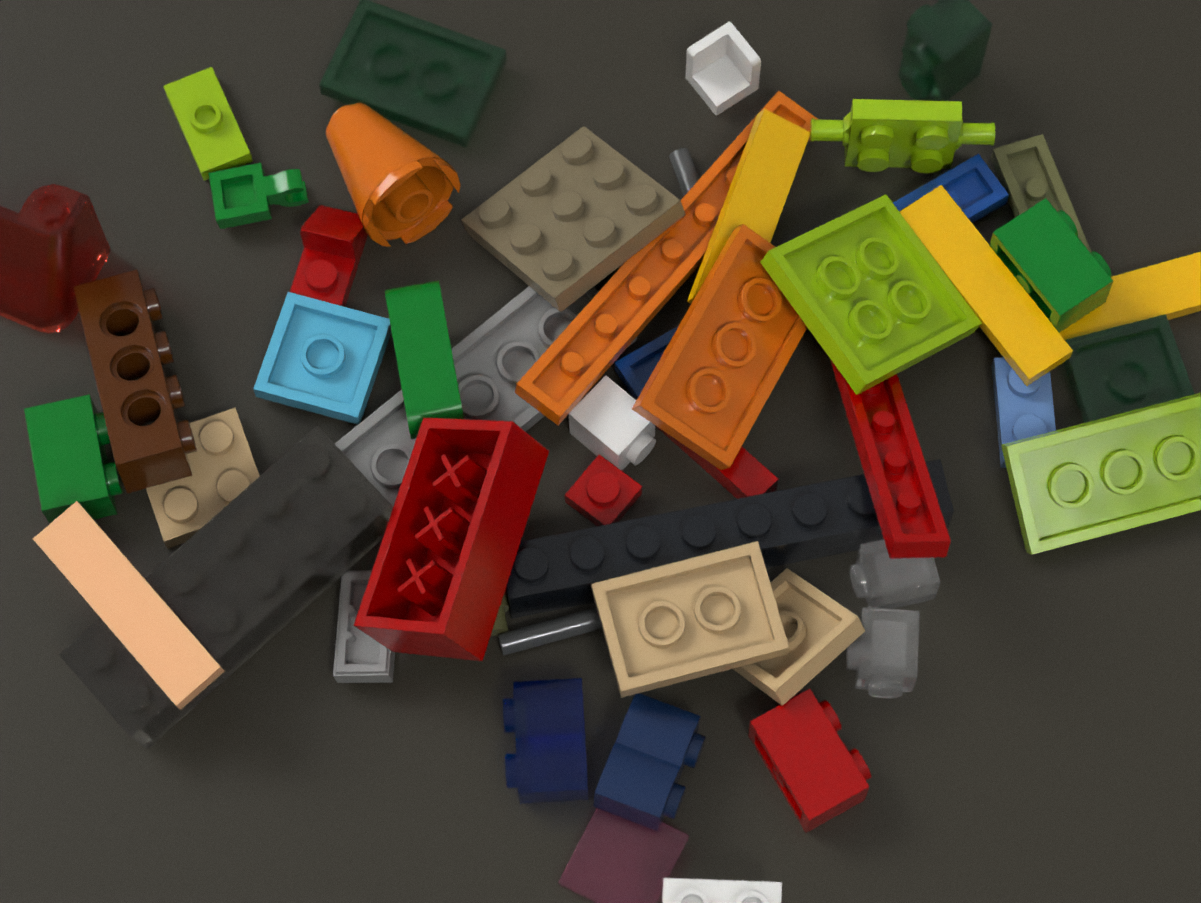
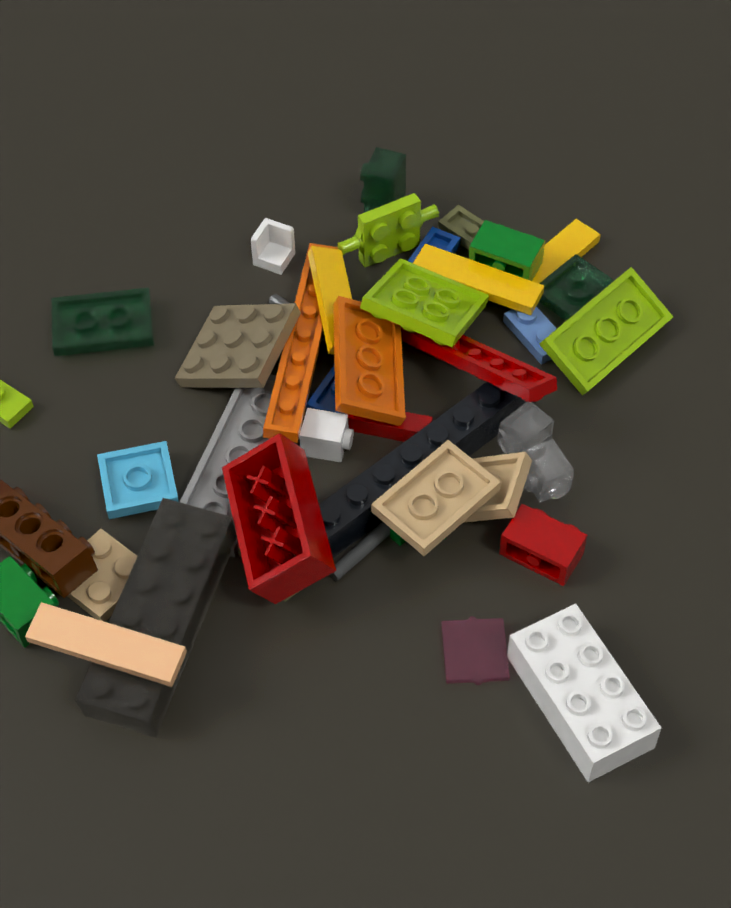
camera: 30 degrees left, 15 degrees down
(245, 193) = (44, 420): green plate -> none
(330, 255) = (109, 428): red slope -> none
(356, 654) = (252, 610): light grey plate -> none
(391, 177) = (122, 370): orange cone -> none
(423, 354) = (197, 443): green beam -> none
(549, 741) = (394, 606): clear blue brick -> none
(603, 493) = (339, 471): red plate -> none
(648, 762) = (457, 588): dark blue brick -> none

